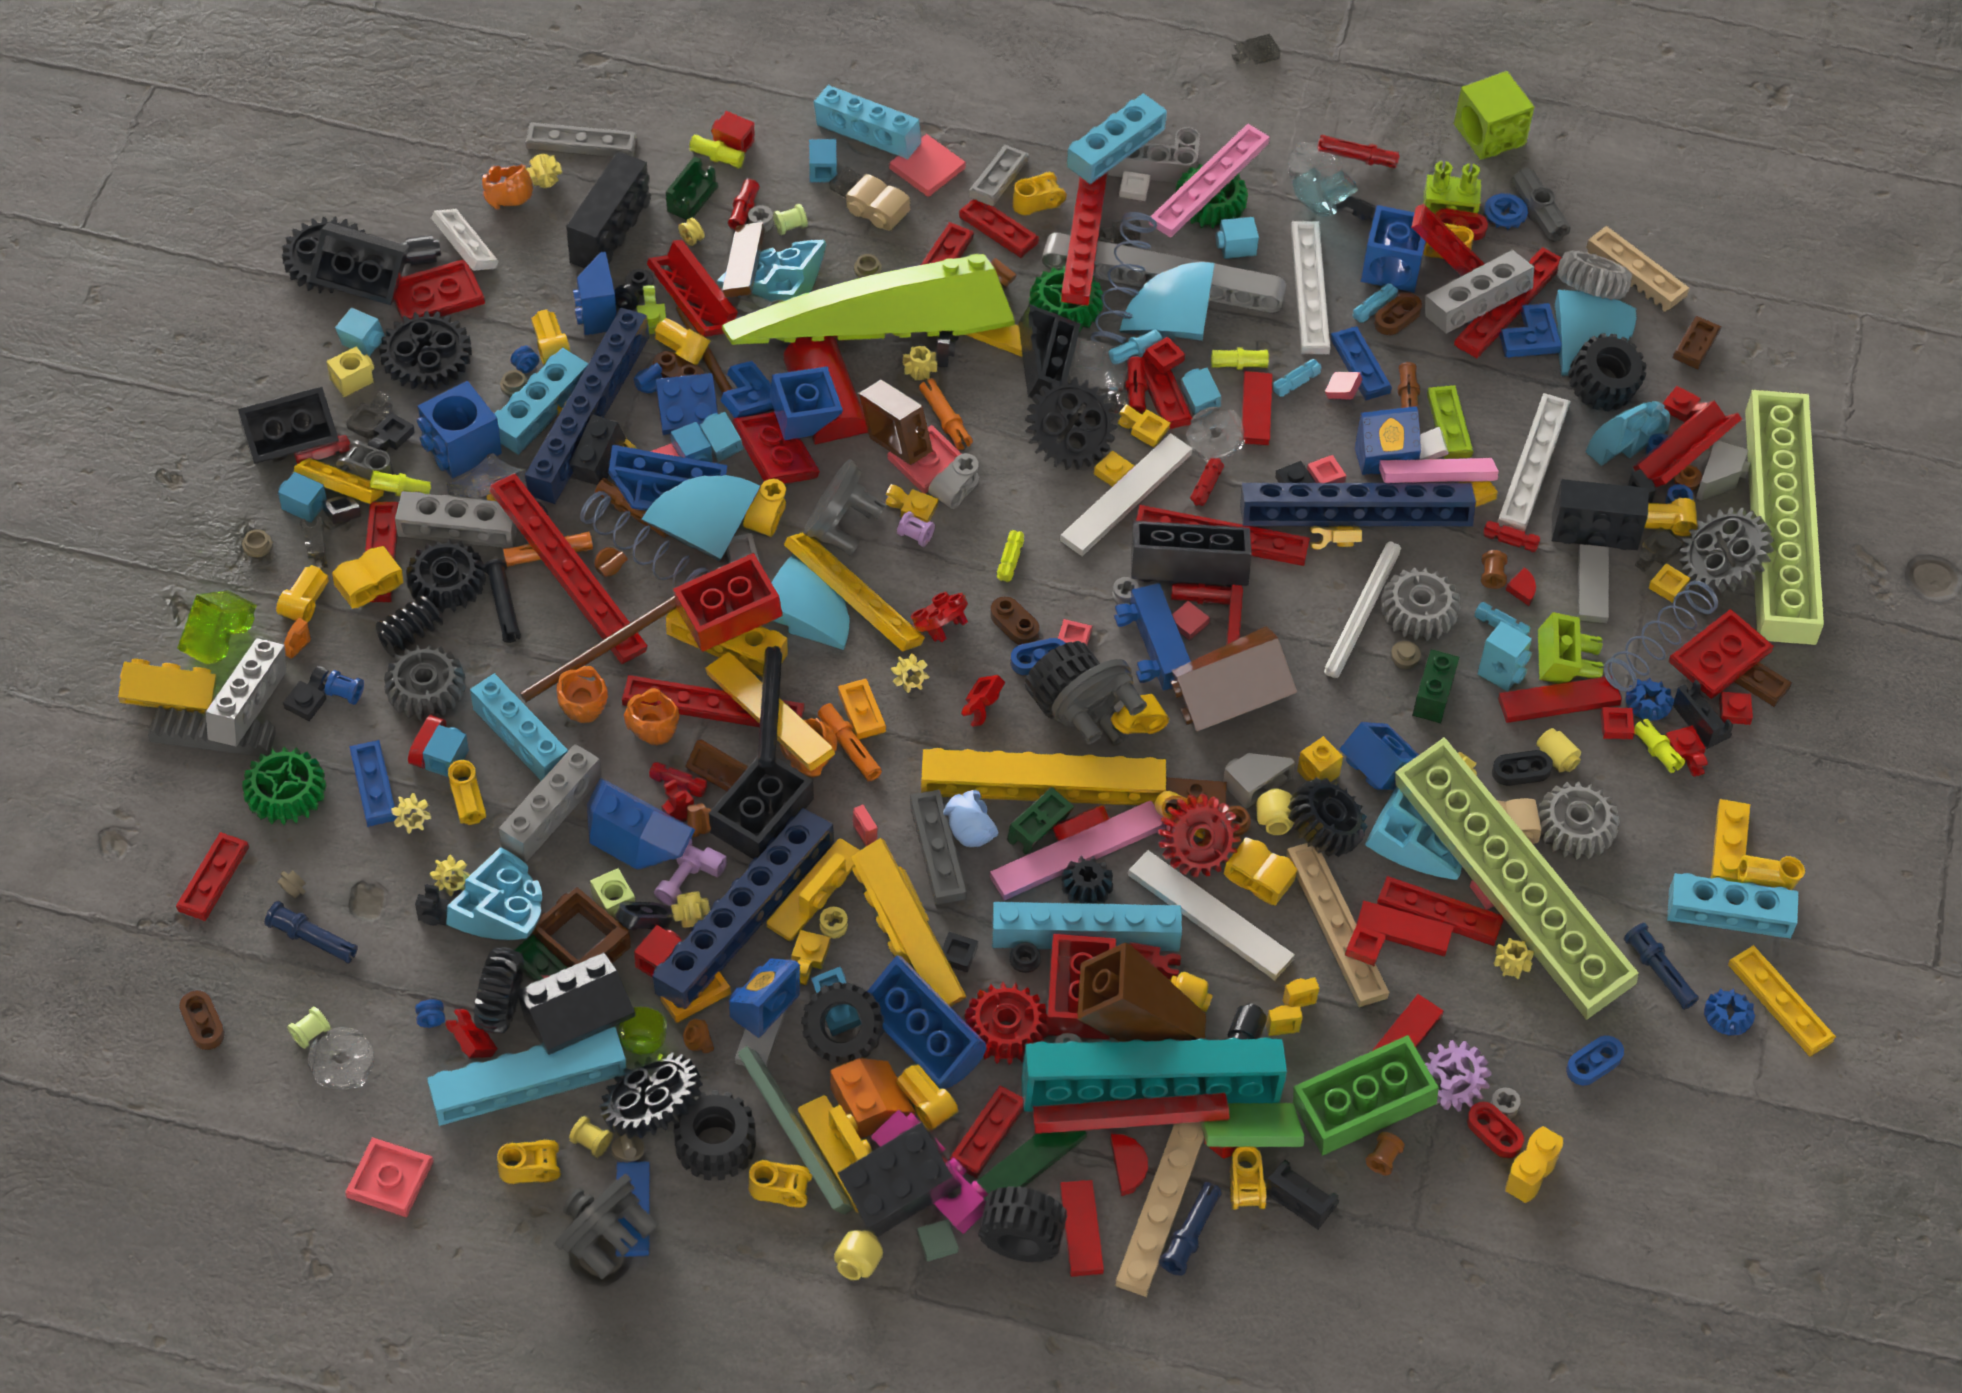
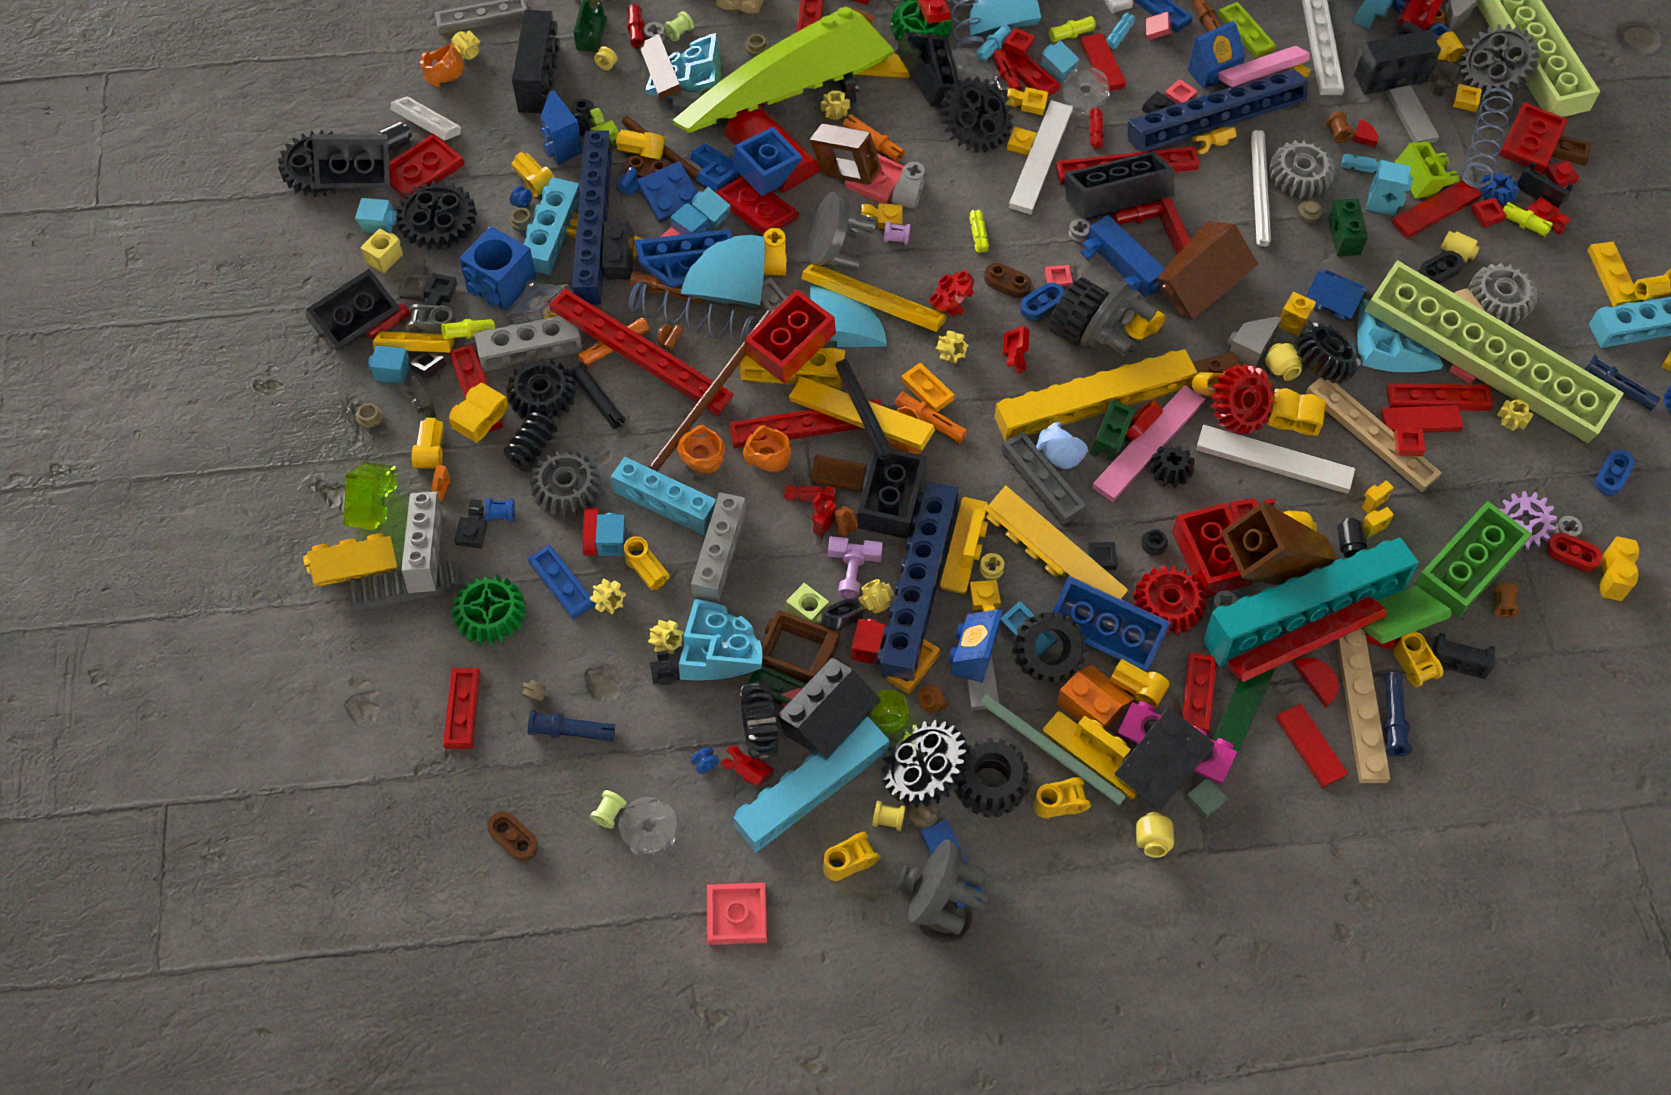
camera: 20 degrees left, 5 degrees up
(633, 828) = (796, 545): blue wedge -> none
(699, 286) = (632, 100): red fence -> none
(864, 825) = (978, 480): coral tile -> none
(1022, 1224) = (1276, 760): black tyre -> none
(1127, 923) = (1161, 509): medium azure brick -> none
(1190, 620) = (1140, 234): coral tile -> none
(1415, 1022) = (1467, 498): red tile -> none
(1433, 444) = (1250, 49): white tile -> none
(1511, 536) = (1337, 99): red axle -> none

